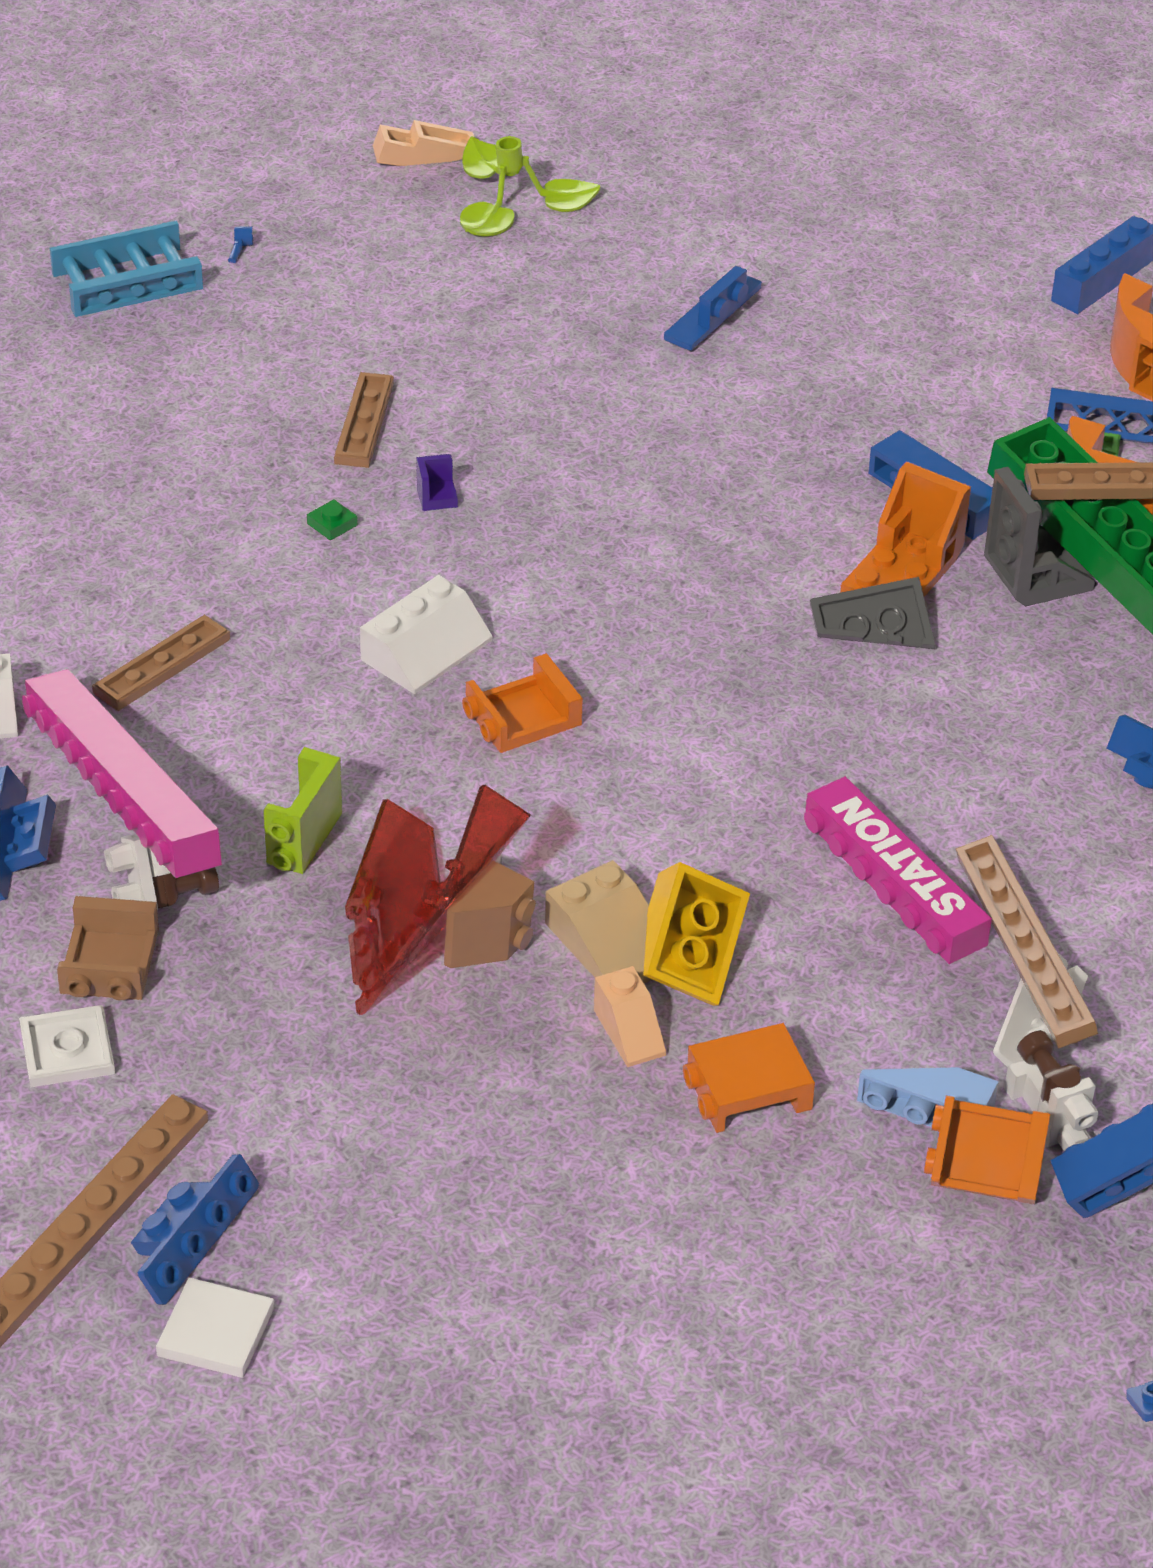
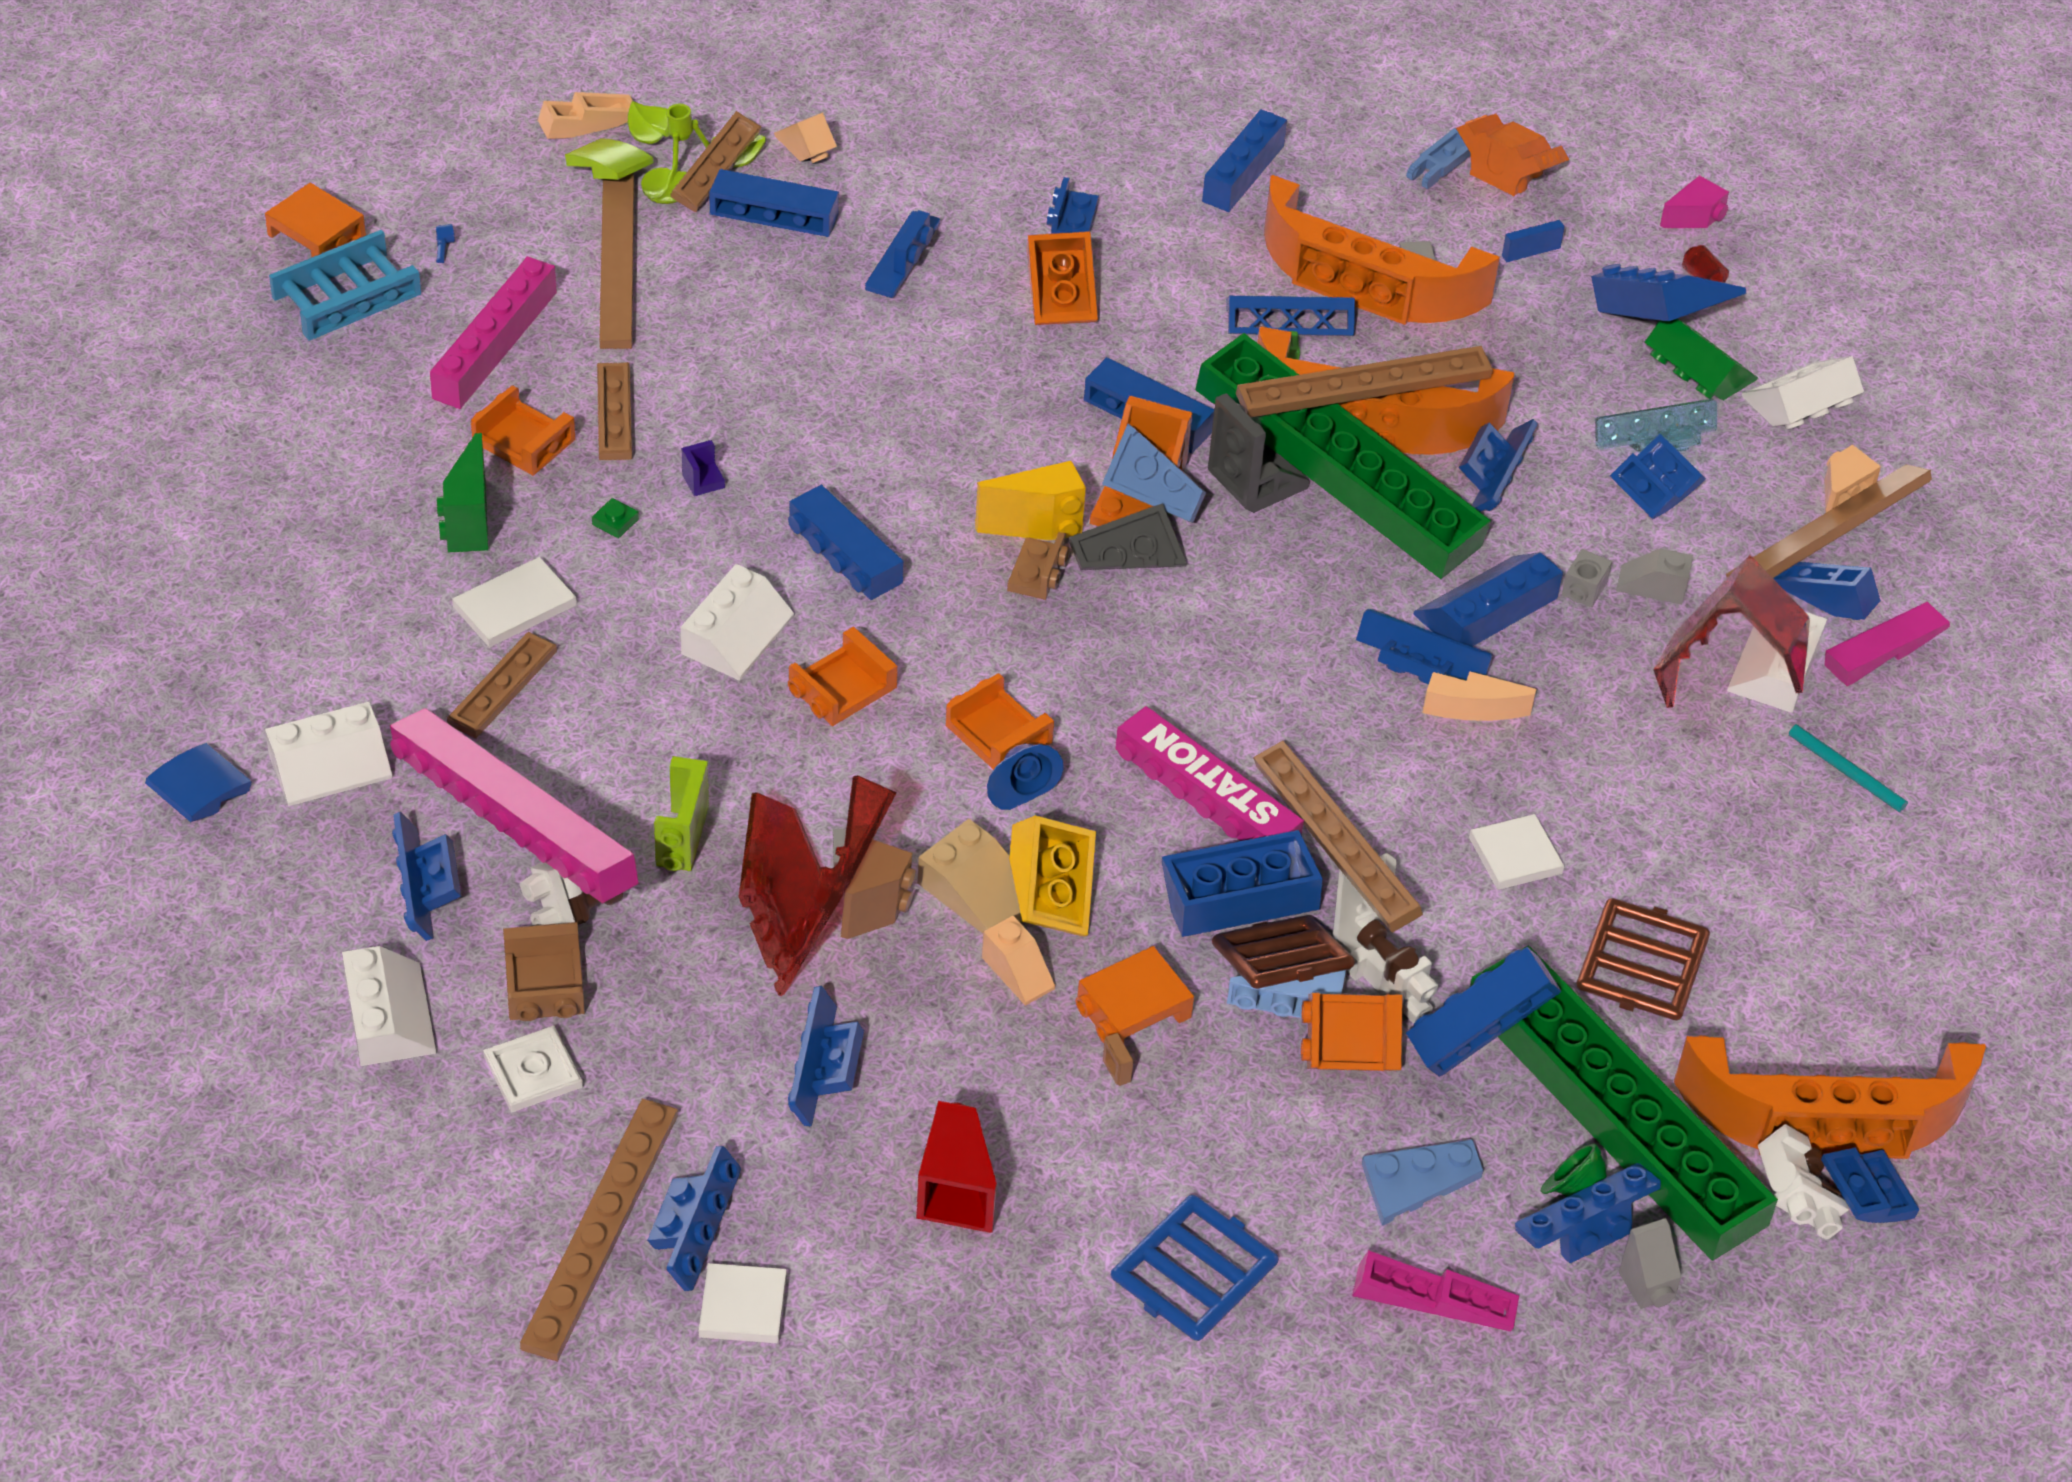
camera: 15 degrees left, 5 degrees up
(114, 204) = (315, 220): none -> orange panel
(177, 478) = (465, 501): none -> green slope
(200, 585) = (514, 602): none -> white tile
(260, 329) = (493, 332): none -> dark pink brick
(260, 426) = (521, 432): none -> orange panel
(383, 1083) = (826, 1057): none -> blue bracket
(411, 283) = (617, 263): none -> medium nougat tile
(432, 185) = (609, 158): none -> lime slope
(485, 1223) = (956, 1171): none -> red slope
(541, 201) = (720, 154): none -> medium nougat tile
(566, 574) = (845, 542): none -> blue brick
(590, 246) = (774, 203): none -> blue brick
(644, 190) = (808, 138): none -> light nougat slope
(678, 775) = (994, 722): none -> orange panel
(690, 829) = (1024, 775): none -> blue piece
(712, 1138) = (1117, 1059): none -> medium nougat tile
(755, 1425) = (1217, 1305): none -> blue bar
(770, 626) = (1038, 567): none -> medium nougat bracket
(776, 559) = (1032, 503): none -> yellow slope
(875, 350) = (1062, 278): none -> orange slope
(904, 293) = (1072, 210): none -> blue bracket
(904, 974) = (1241, 883): none -> blue slope
(914, 549) = (1151, 477): none -> medium blue wing
(930, 1052) = (1312, 934): none -> copper bar
(1027, 1320) = (1416, 1175): none -> medium blue wing
(1029, 1459) = (1447, 1296): none -> dark pink slope

